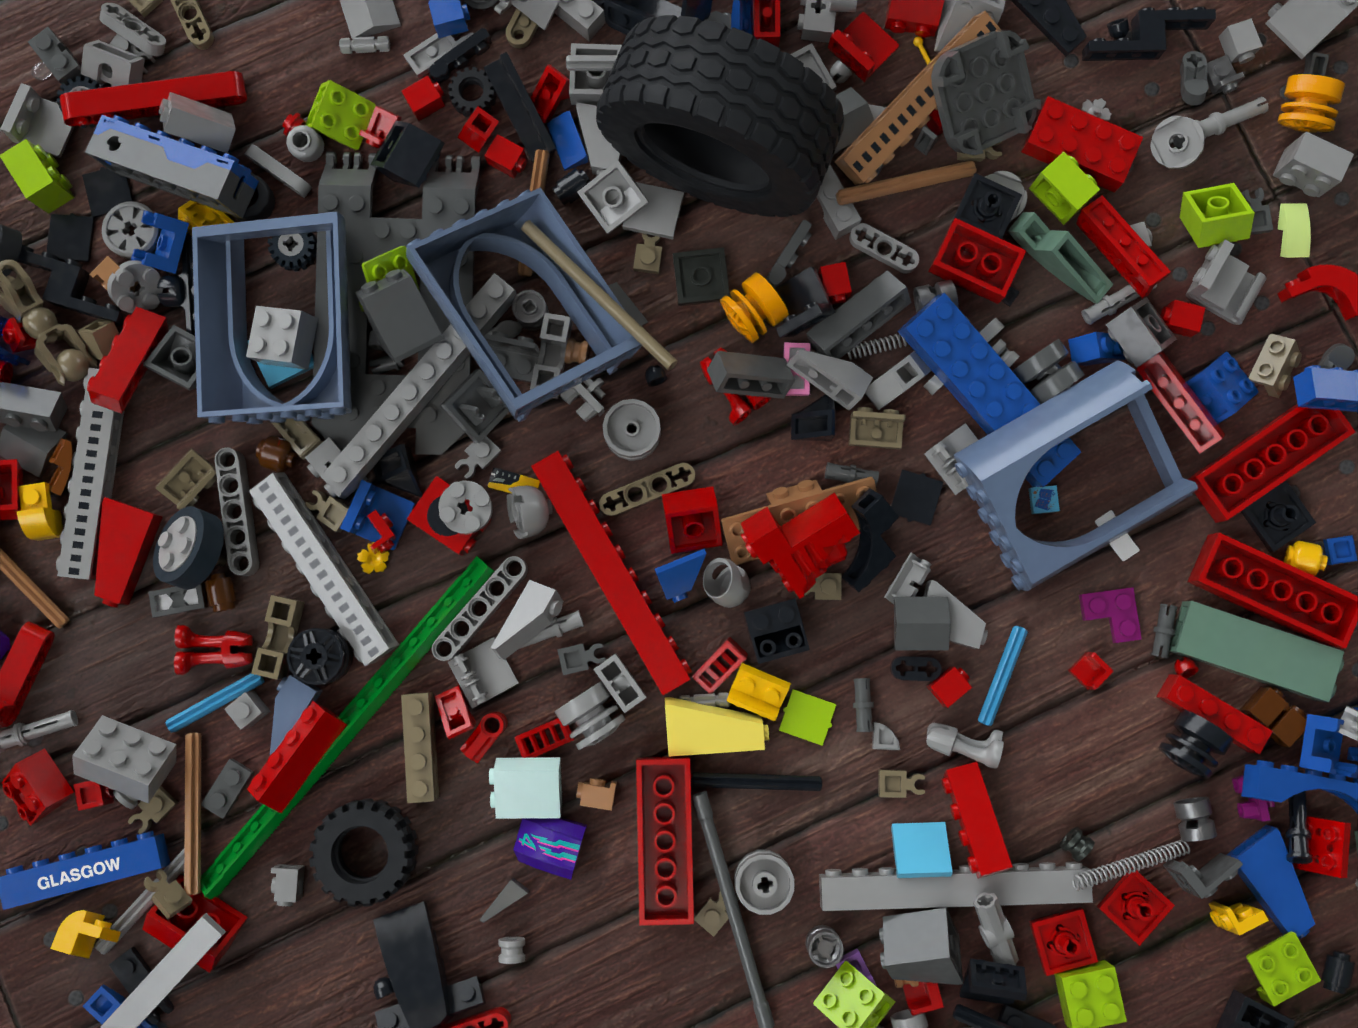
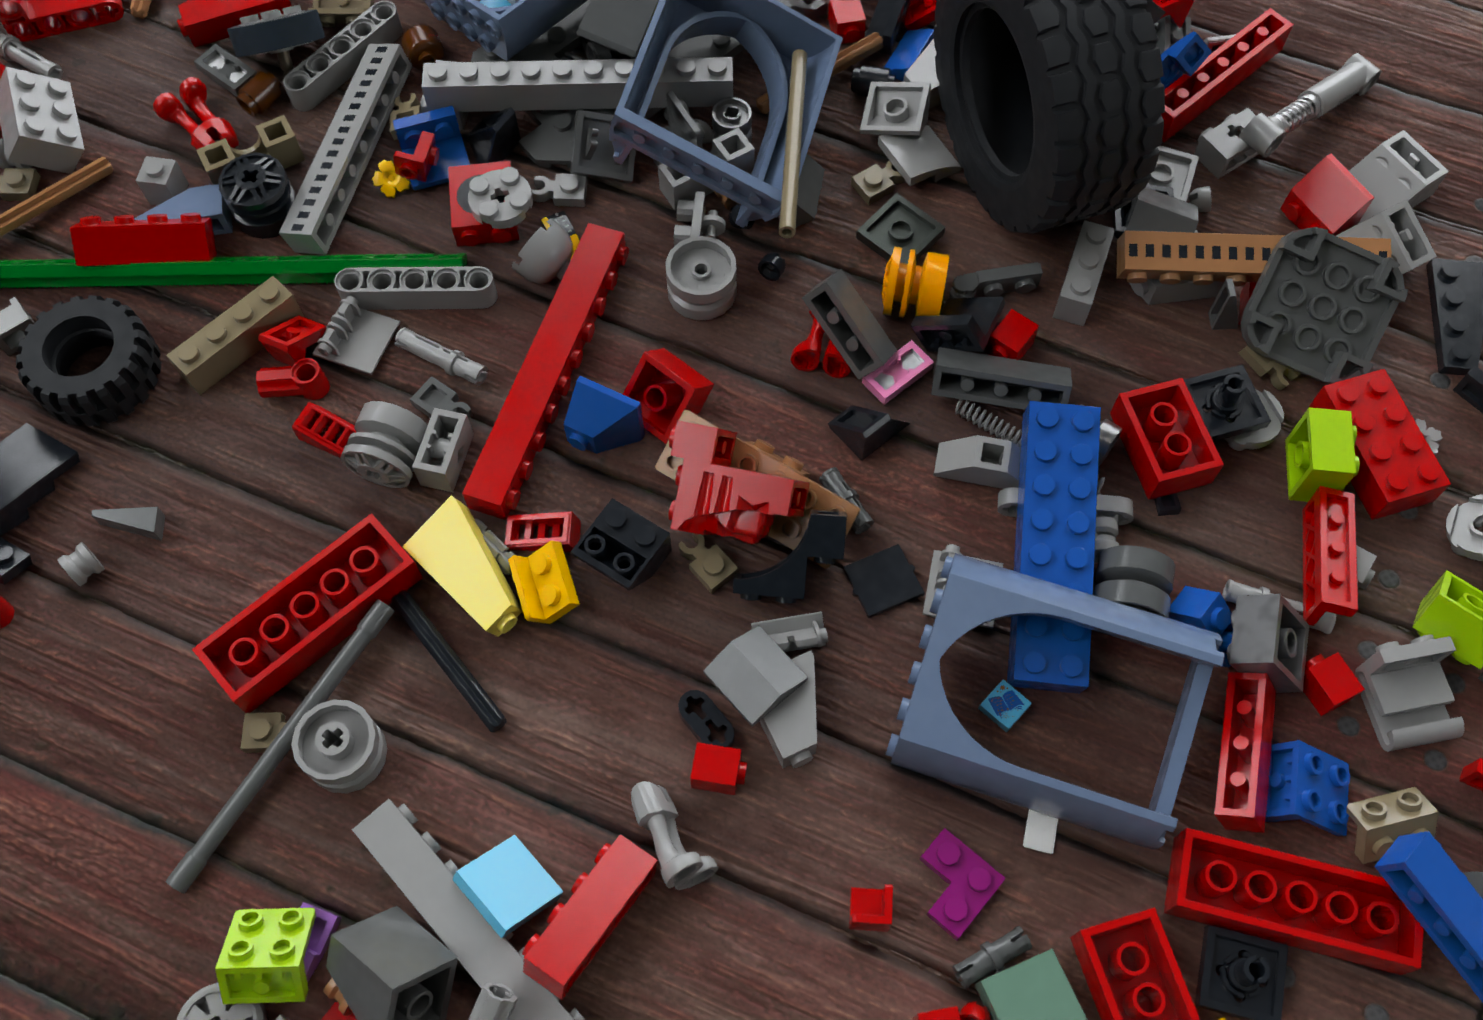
camera: 50 degrees right, 20 degrees down
(213, 702) = (137, 154): dark azure axle -> none
(227, 788) = (56, 223): dark grey piece -> none
(299, 435) = (455, 47): dark tan plate -> none
(526, 787) = (265, 448): light aqua brick -> none
(529, 617) = (435, 324): light grey slope -> none
(550, 844) = (226, 520): dark purple slope -> none
(596, 794) = (312, 520): medium nougat brick -> none
(645, 485) = (661, 336): dark tan beam -> none
(730, 586) = (629, 474): light grey helmet -> none
(807, 717) = (560, 658): lime piece -> none
(824, 946) = (313, 868): flat silver wheel -> none
(833, 376) = (922, 401): light grey slope -> none
(862, 46) = (1243, 199): red bracket -> none
(863, 705) = (619, 699): dark grey pin -> none
(876, 429) = (913, 483): dark tan bracket -> none
(884, 738) = (603, 751): light grey tile -> none
(886, 259) = (1086, 372): light grey beam -> none
(895, 783) = (562, 801): dark tan plate -> none
(905, 182) = (1163, 315): medium nougat axle -> none
(1002, 675) = (779, 819): dark azure axle -> none
(1061, 256) = (1256, 514): sand green slope -> none

